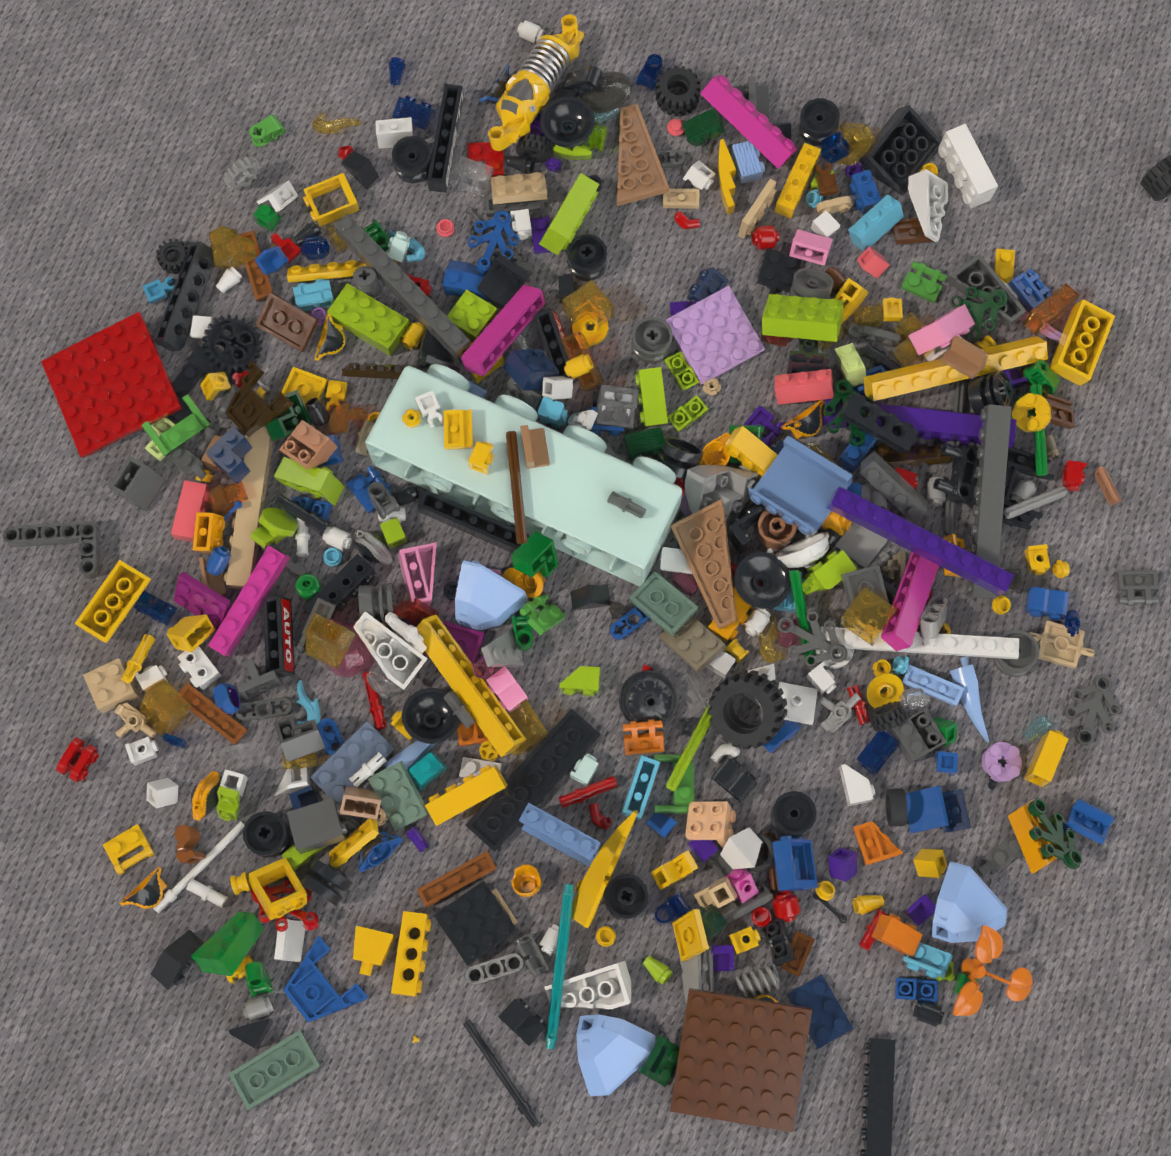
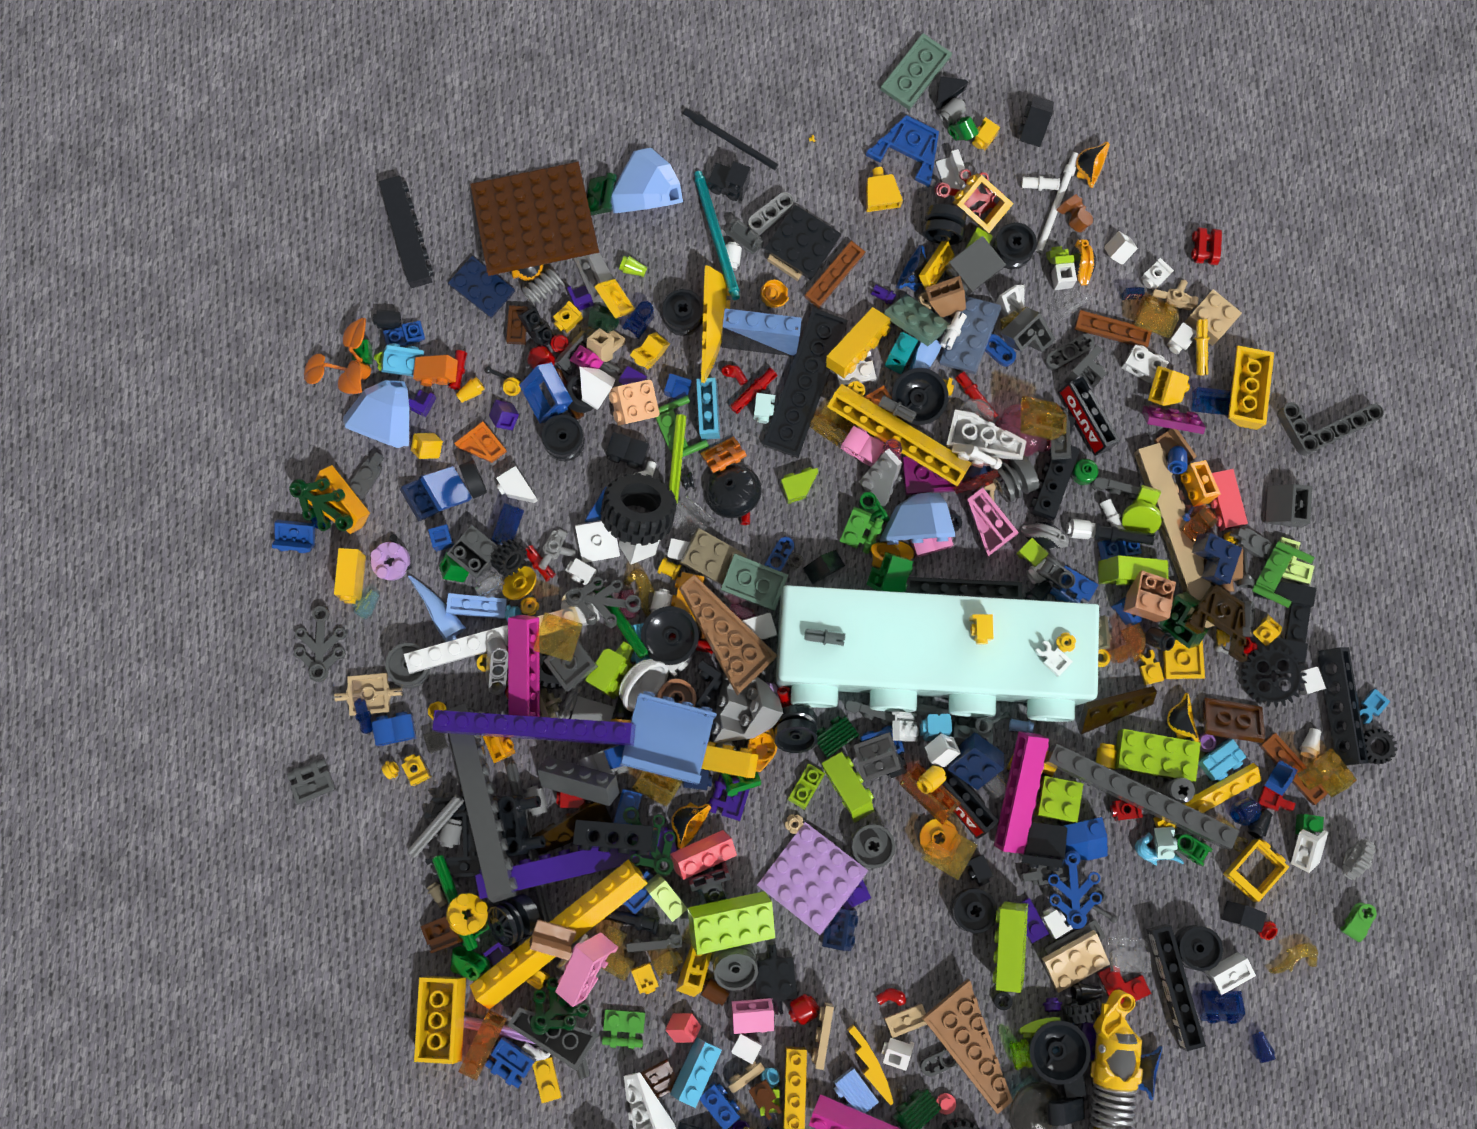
camera: 150 degrees right, 5 degrees up
(111, 384) = (1364, 591): red plate -> none
(124, 844) = (1130, 195): yellow plate -> none
(227, 698) = (1107, 343): blue rock -> none
(229, 945) = (1000, 144): green wedge -> none
(240, 883) = (1018, 199): yellow wheel -> none
(249, 601) = (1130, 435): dark pink brick -> none
(303, 797) = (996, 287): dark blue panel -> none
(312, 708) = (1024, 363): medium azure piece -> none
(332, 557) = (1076, 511): medium azure plate -> none
(410, 921) = (842, 172): yellow brick -> none
(434, 353) = (1074, 737): black bracket -> none
(445, 228) = (1128, 888): coral plate -> none
(458, 429) = (1017, 648): yellow plate -> none
(516, 487) = (936, 614): reddish brown axle -> none
(534, 447) = (936, 660): medium nougat panel -> none
(597, 989) = (676, 232): white wedge -> none
(605, 936) = (687, 277): yellow plate -> none
(681, 371) = (830, 828): lime slope -> none
(1073, 475) = (406, 871): red brick -> none
(1107, 486) = (368, 876): nougat slope -> none

